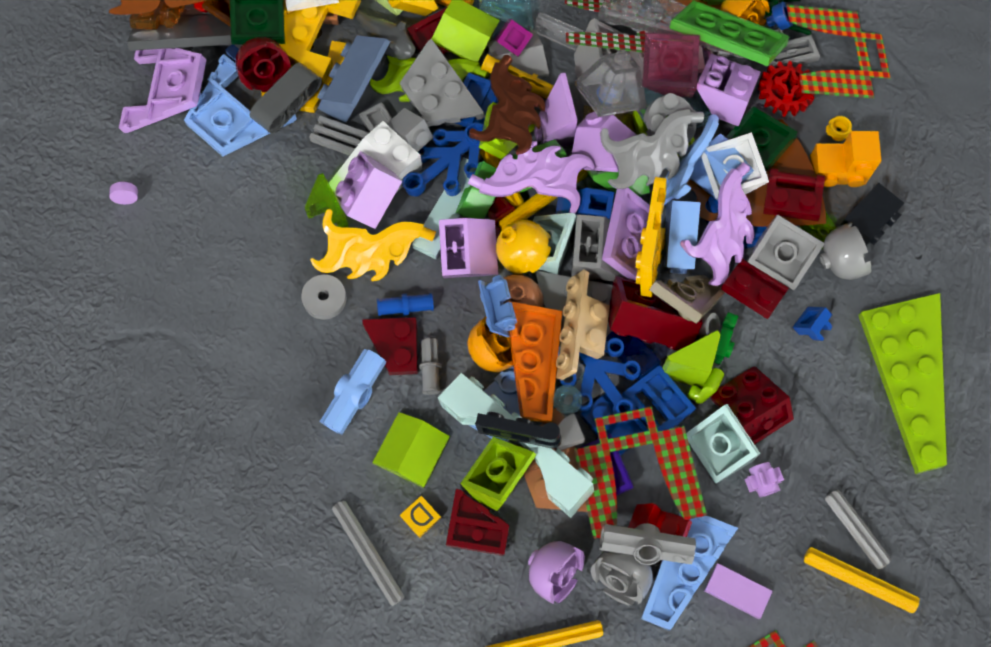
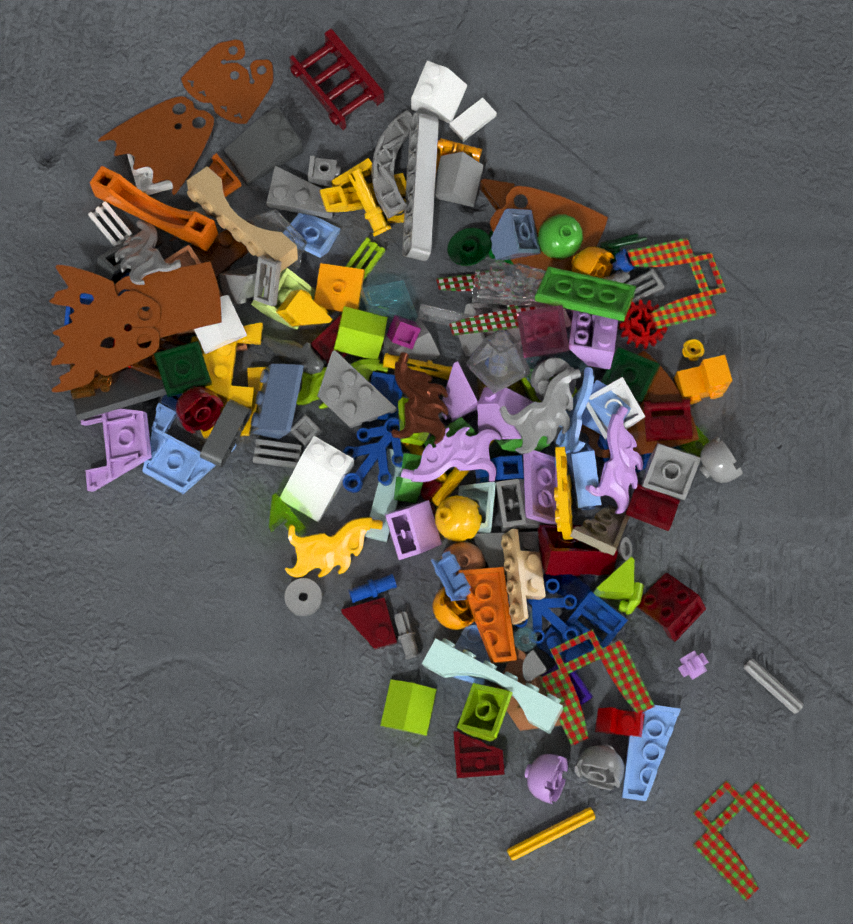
camera: 15 degrees left, 5 degrees up
(123, 193) = (110, 547): lavender tile -> none
(353, 391) = (350, 672): light blue piece -> none
(367, 190) = (317, 500): lavender slope -> none
(368, 553) = (396, 798): light grey axle -> none
(411, 128) = (338, 436): light grey brick -> none
(420, 516) = (430, 760): yellow tile -> none
(519, 430) = (496, 676): black plate -> none
(647, 544) = (614, 741): light grey piece -> none
(722, 444) = (654, 644): light aqua slope -> none
(726, 346) = (637, 555): green plate -> none
(738, 591) = (691, 757): lavender tile -> none
(812, 322) = (705, 524): blue tile -> none
(861, 580) = (783, 725): yellow axle -> none
(874, 212) = (734, 422): black brick -> none
(910, 362) = (787, 536): lime wing -> none

